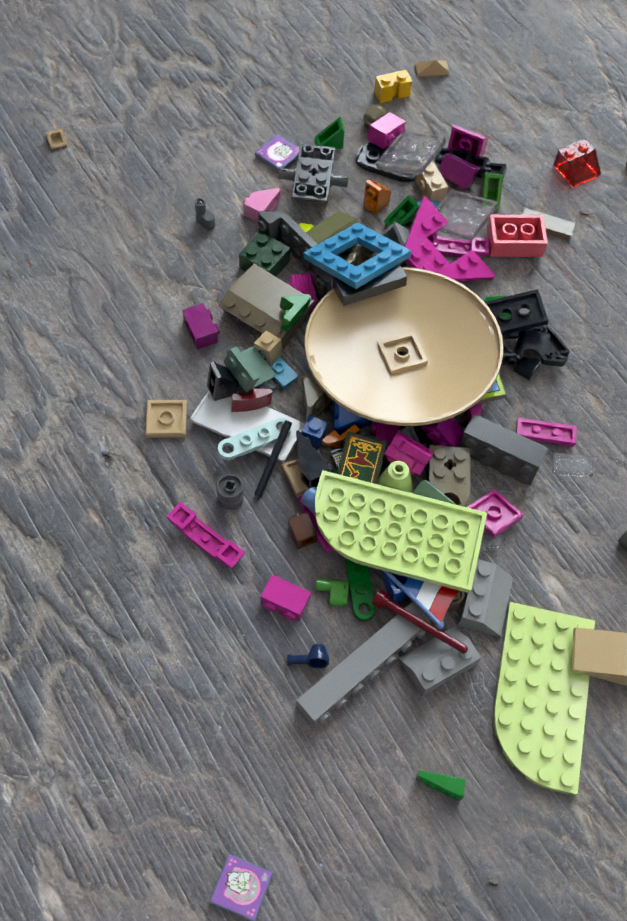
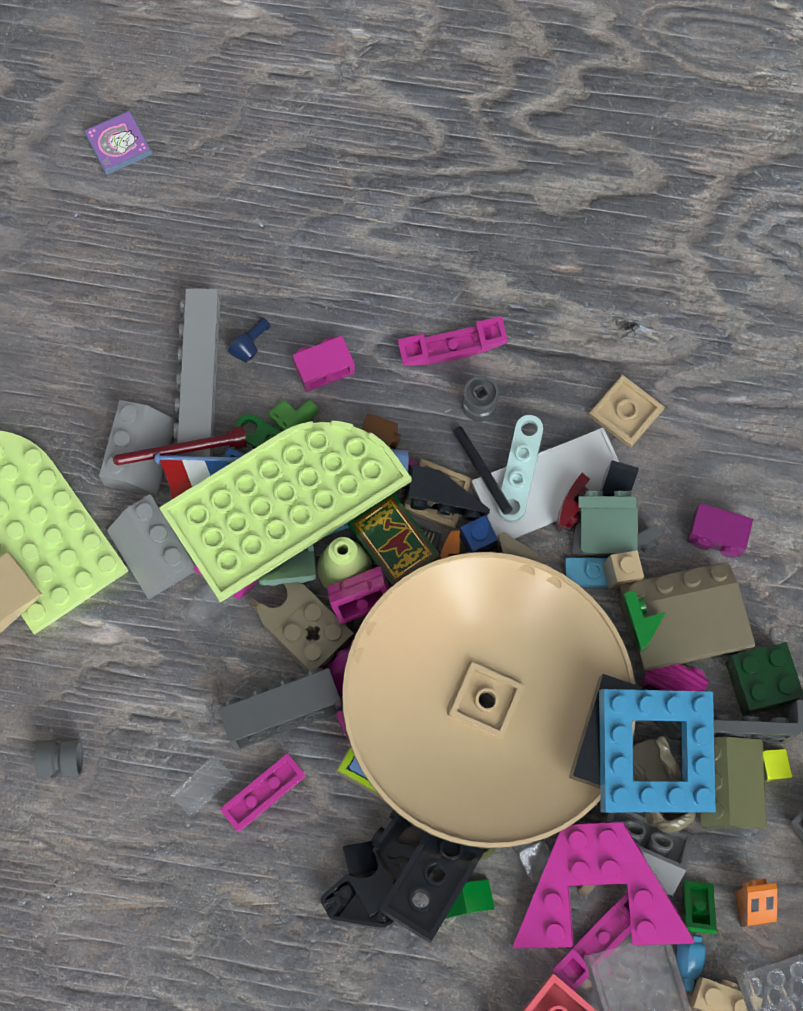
camera: 135 degrees right, 10 degrees up
(445, 784) = (35, 355): green slope -> none
(499, 511) = (225, 639): dark pink tile -> none

